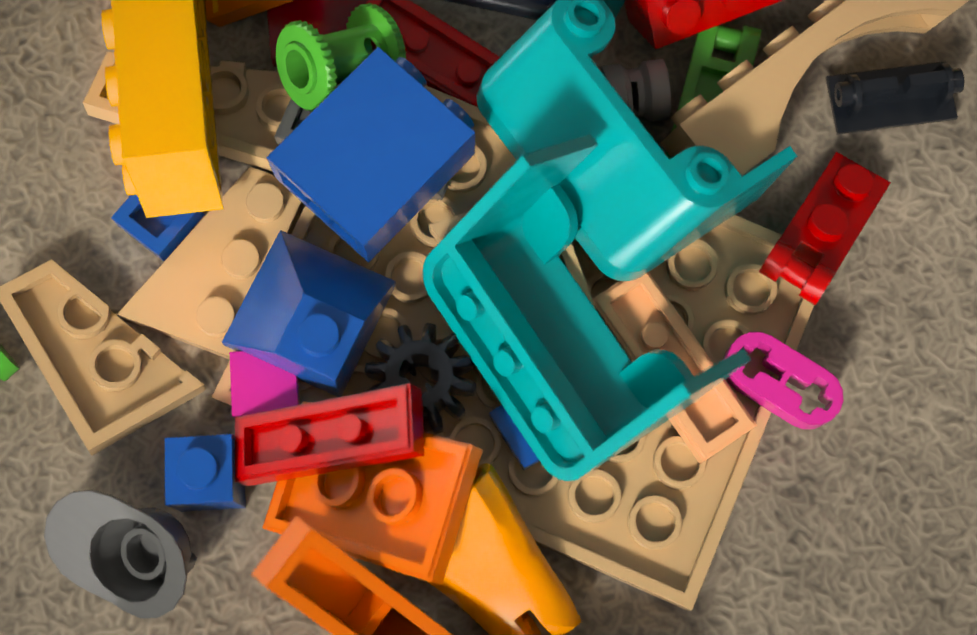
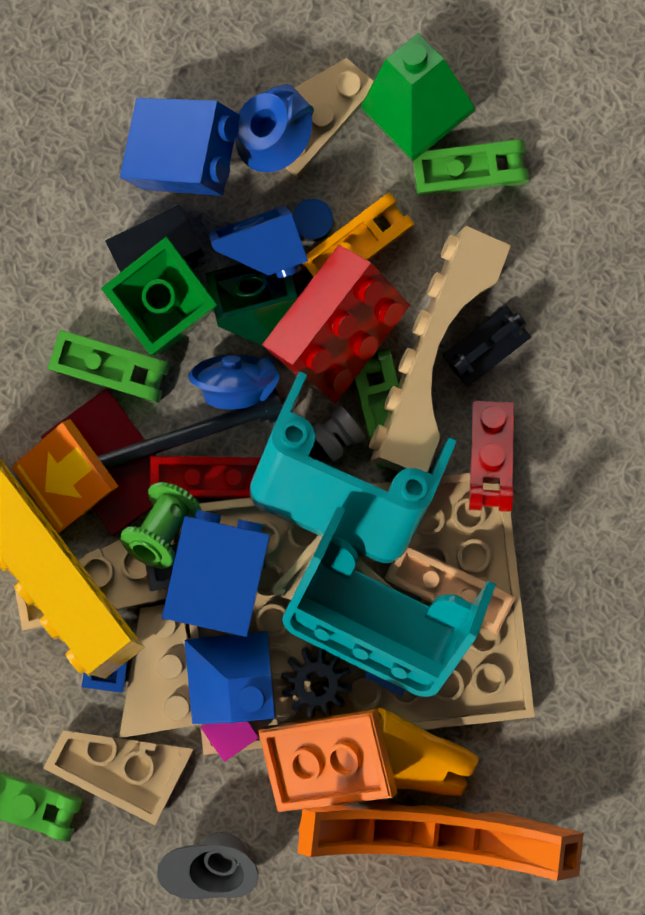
camera: 30 degrees left, 10 degrees up
(202, 473) = (227, 799): blue brick -> none
(329, 435) = (286, 746): red tile -> none
(790, 368) = (515, 573): dark pink beam -> none

